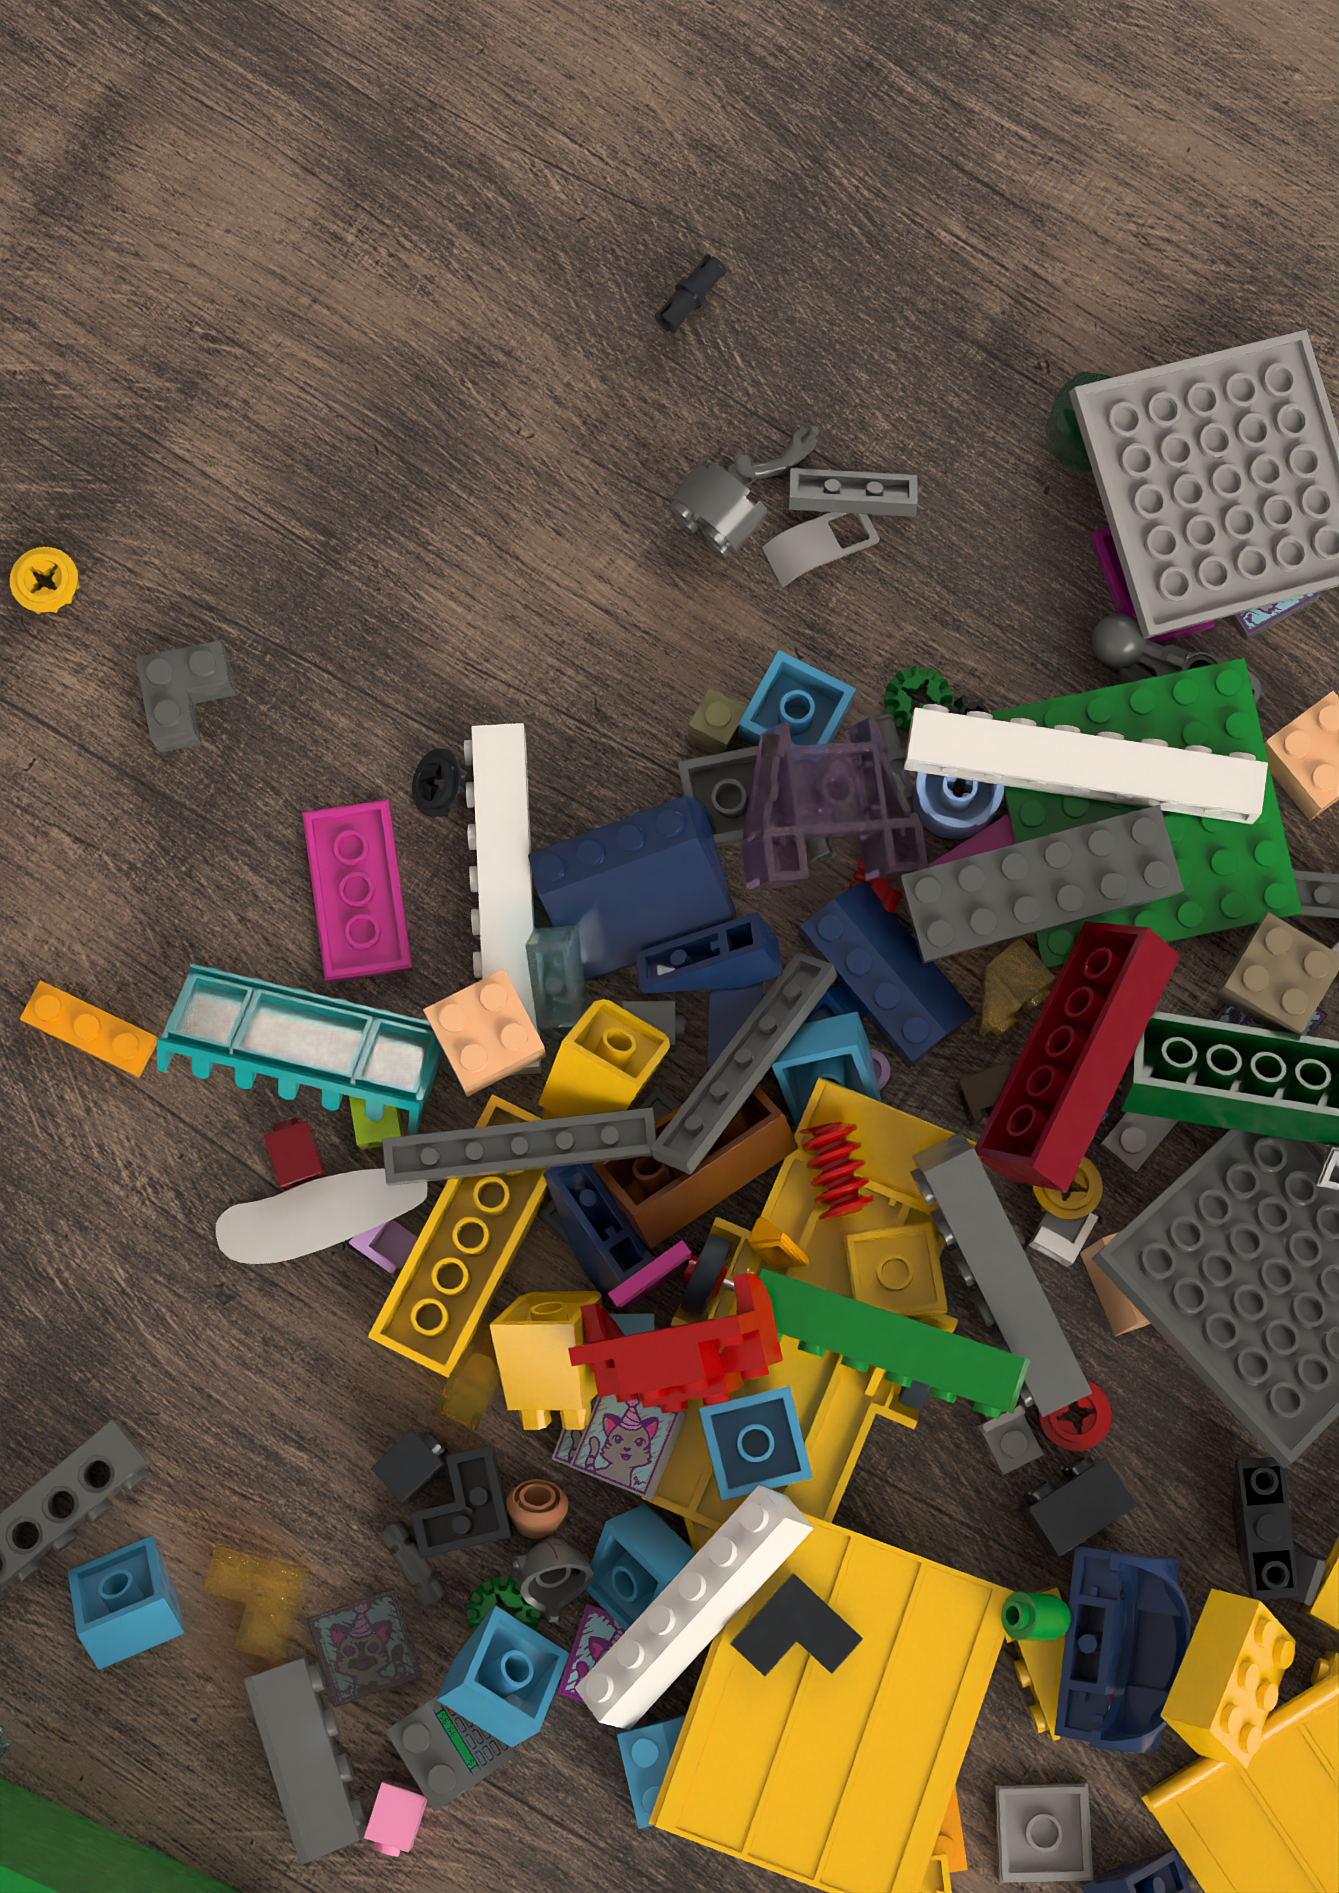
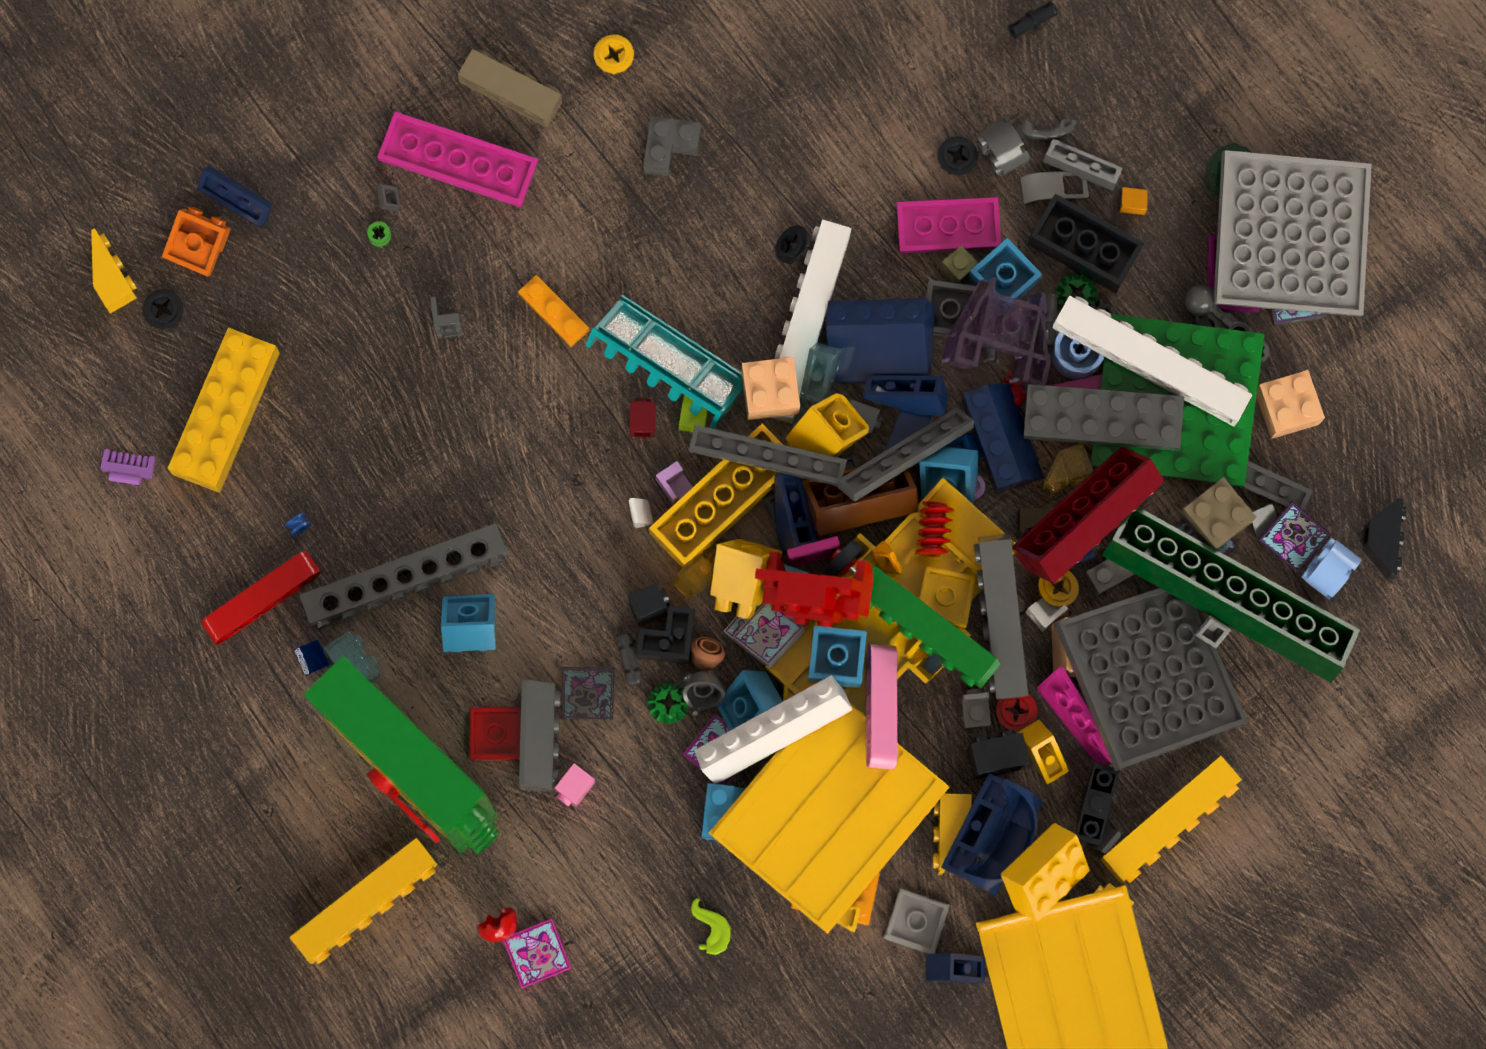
camera: 15 degrees right, 0 degrees up
(229, 1775) = (494, 733): none -> red tile
(271, 1593) = (548, 645): clear yellow brick -> none
(313, 1216) = (641, 455): white sticker -> none
(346, 1311) = (640, 512): none -> white slope
(357, 891) = (726, 288): dark pink tile -> none
(446, 1751) = (617, 758): dark grey slope -> none
(504, 1678) = (657, 734): dark azure slope -> none
(637, 534) = (952, 145): none -> black gear
(676, 663) = (948, 225): none -> dark pink plate
(792, 1617) = (823, 753): black tile -> none
(859, 1502) = (881, 706): none -> bright pink beam
(905, 614) = (1085, 243): none -> black brick
(954, 521) = (1133, 201): none -> light orange slope
(1035, 1616) = (953, 801): green brick -> none
(1145, 1467) = (1044, 752): none -> yellow slope
(1169, 1384) = (1073, 712): none -> dark pink wing

